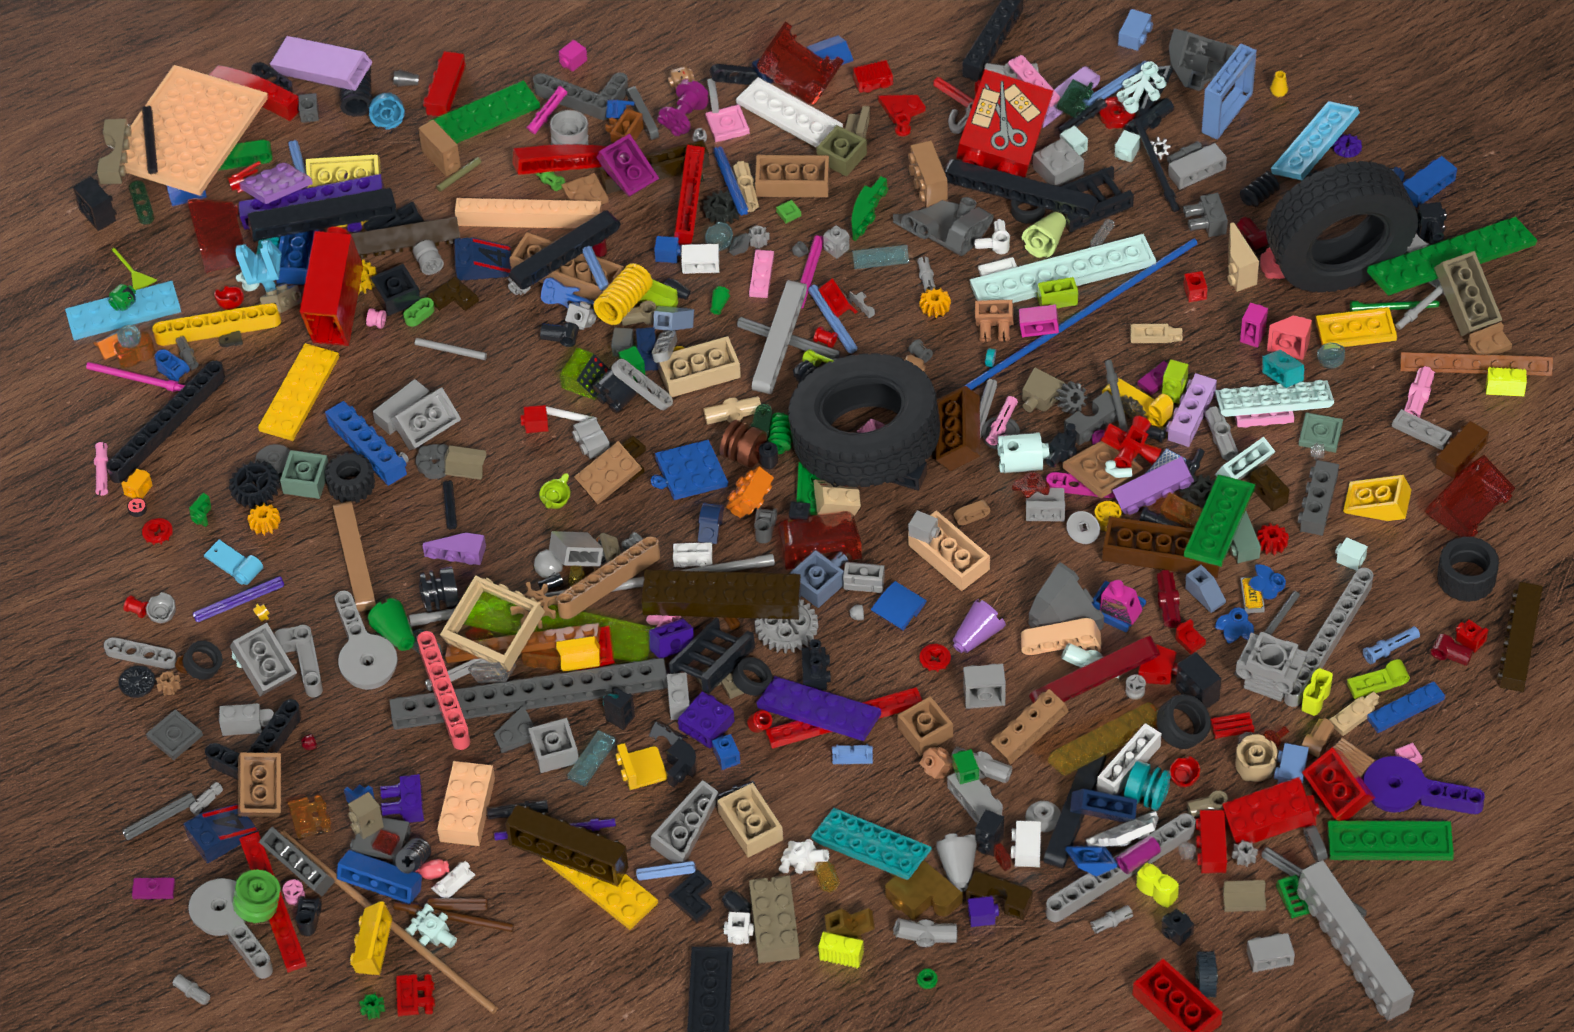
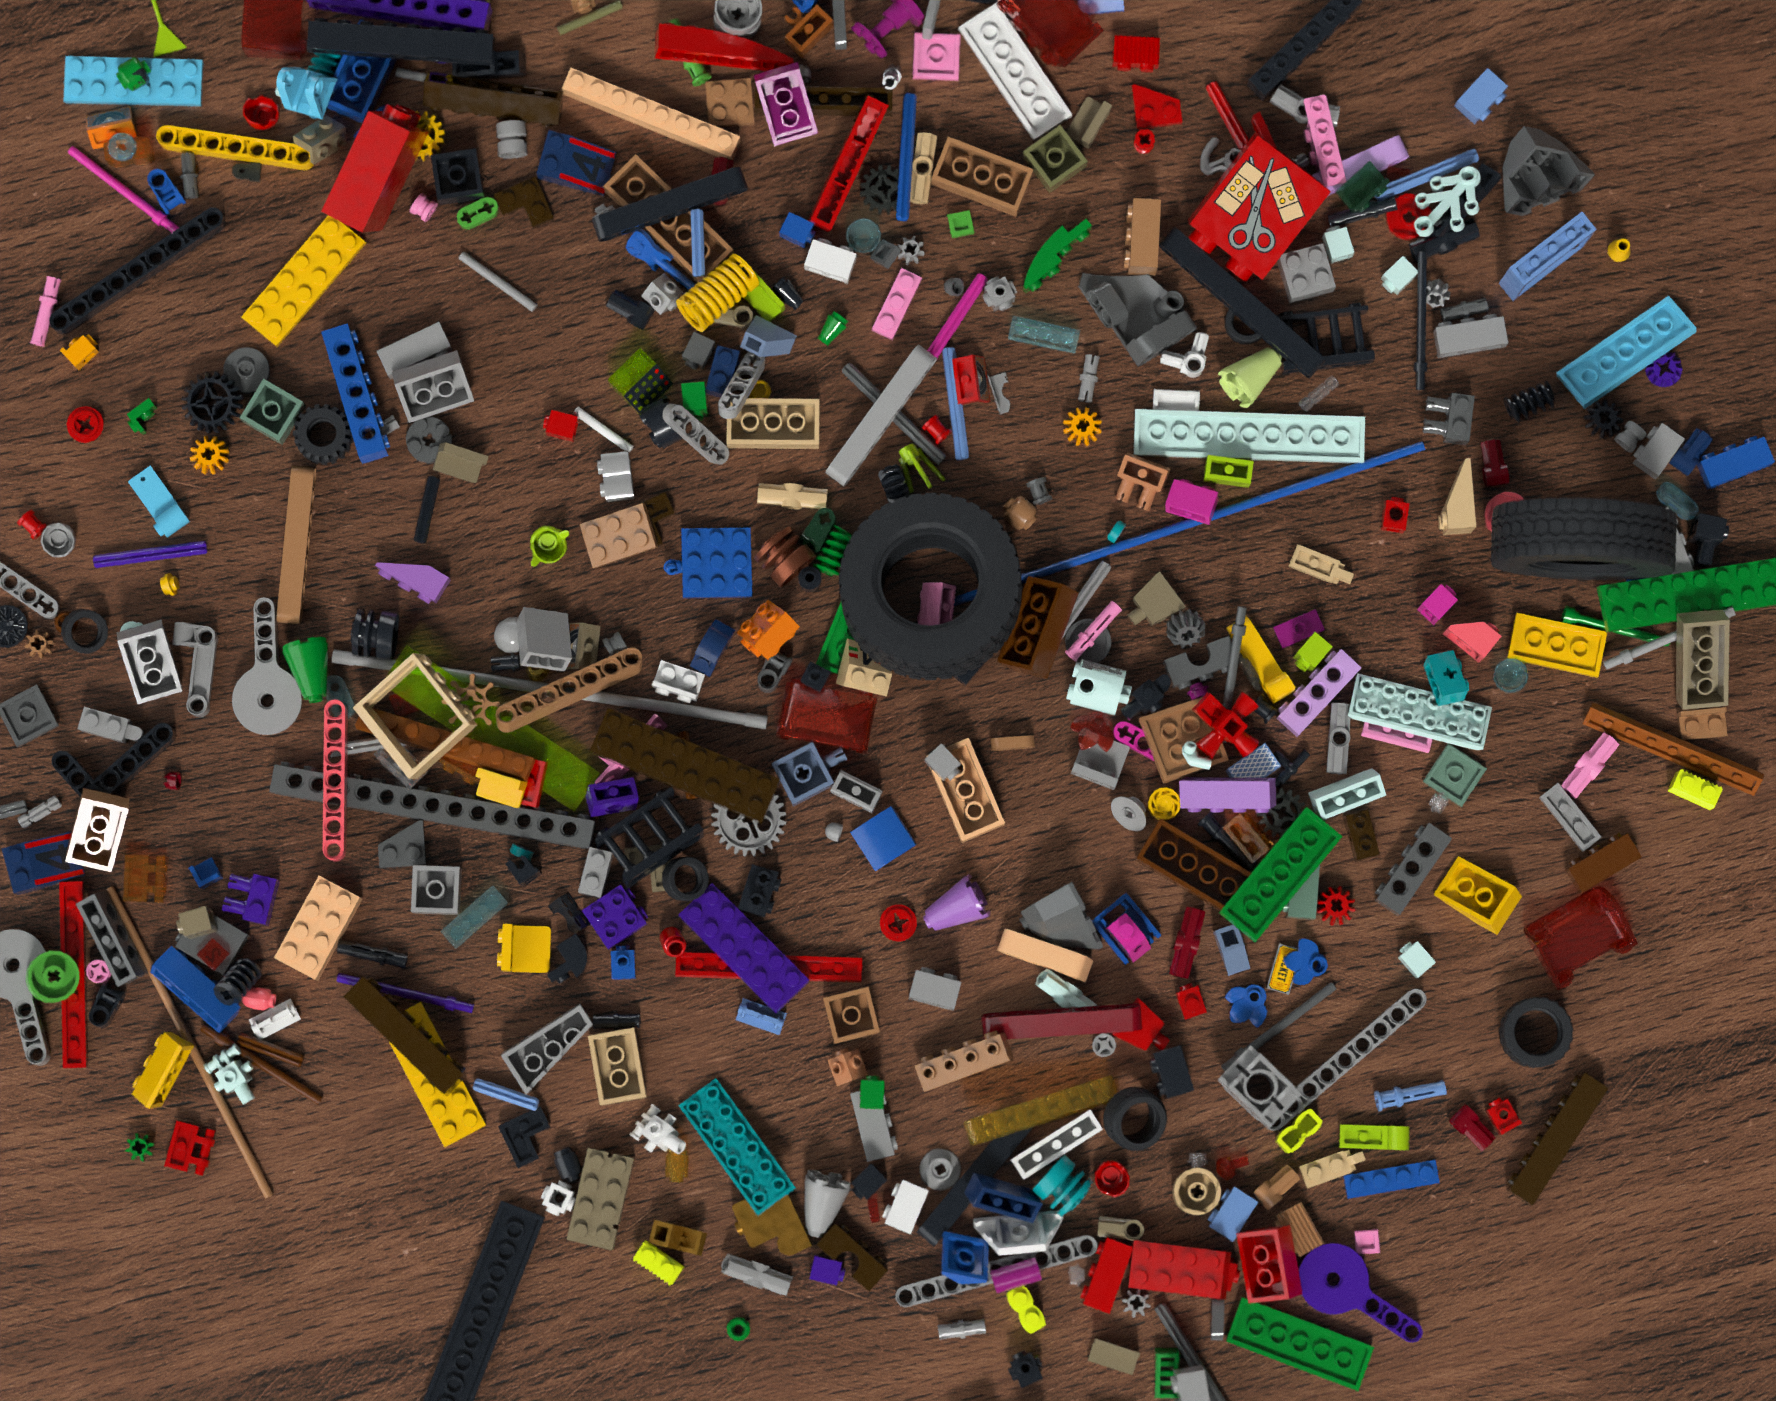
camera: 15 degrees right, 30 degrees up
(137, 507) = (71, 380): tile -> none
(990, 767) = (896, 1084): light grey piece -> none
(1231, 723) = (1210, 1135): red tile -> none

